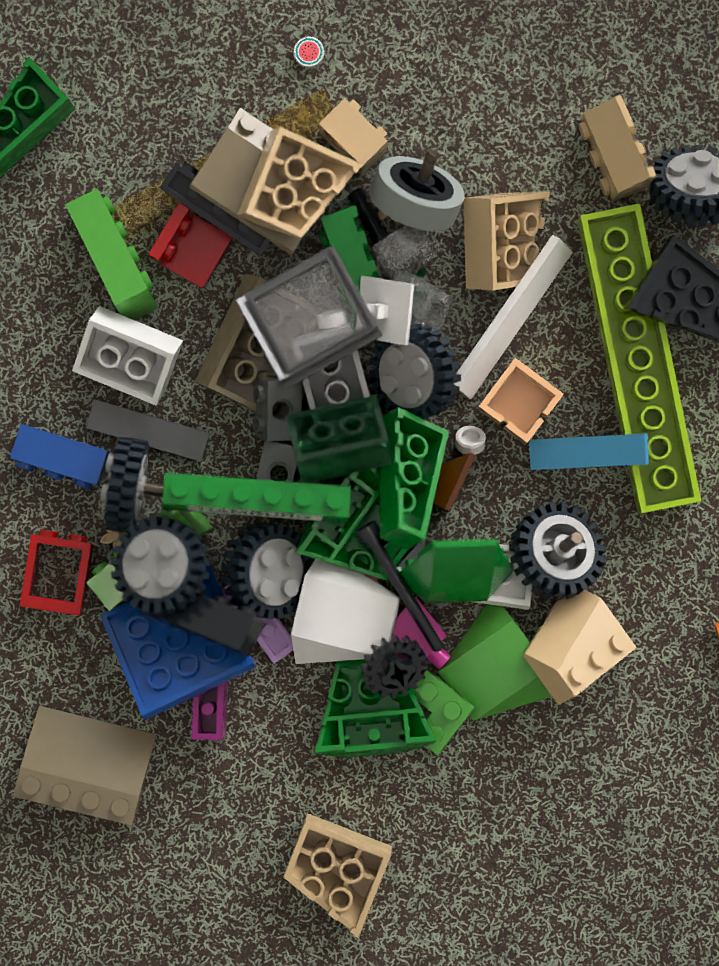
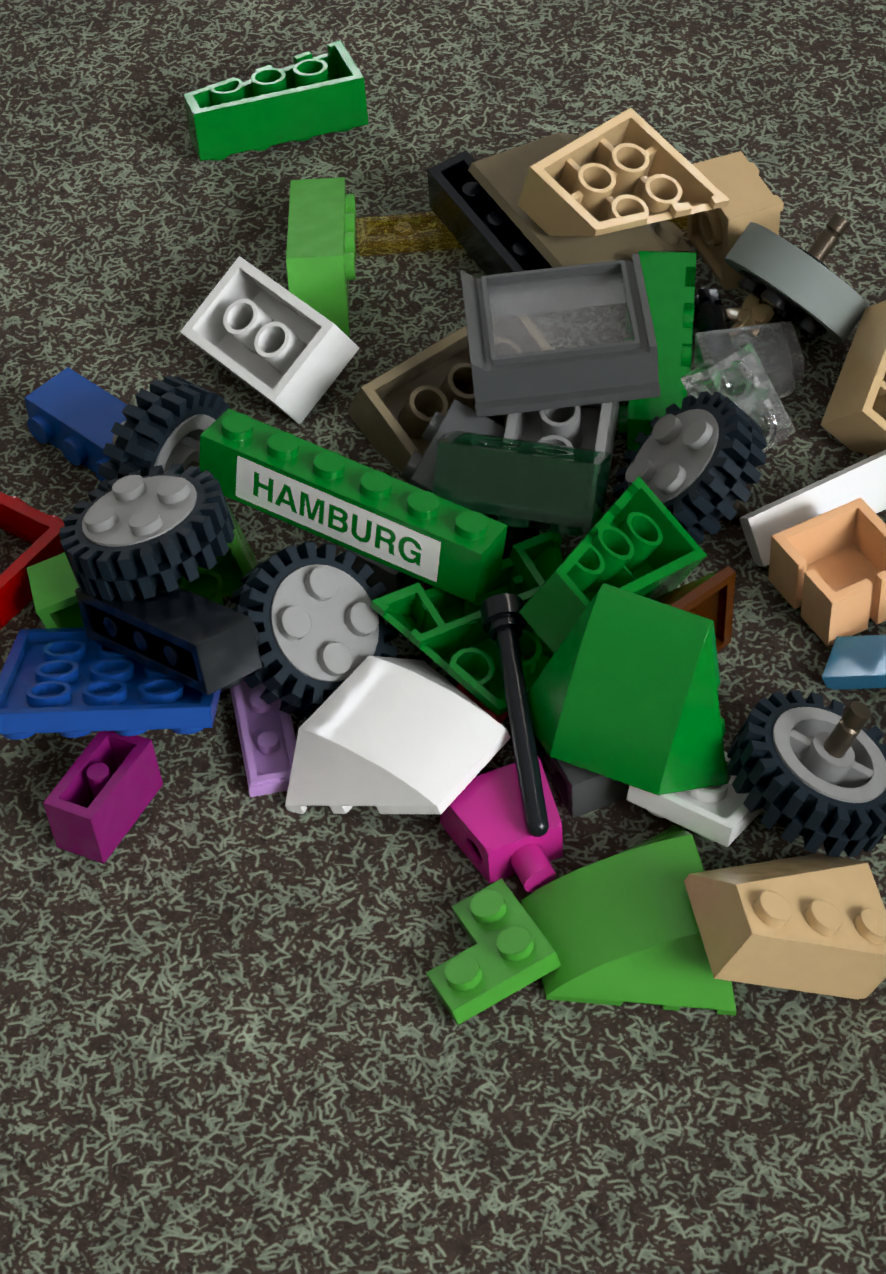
camera: 30 degrees right, 40 degrees down
(190, 246) = (421, 268): red bracket -> none
(309, 52) = (713, 147): tile -> none
(338, 870) = (169, 1115): tan wedge -> none
(366, 724) = (365, 907): green wedge -> none
(380, 666) = (473, 814): black gear -> none
(390, 306) = (684, 373): white piece -> none
(470, 440) = (748, 608): white tile -> none

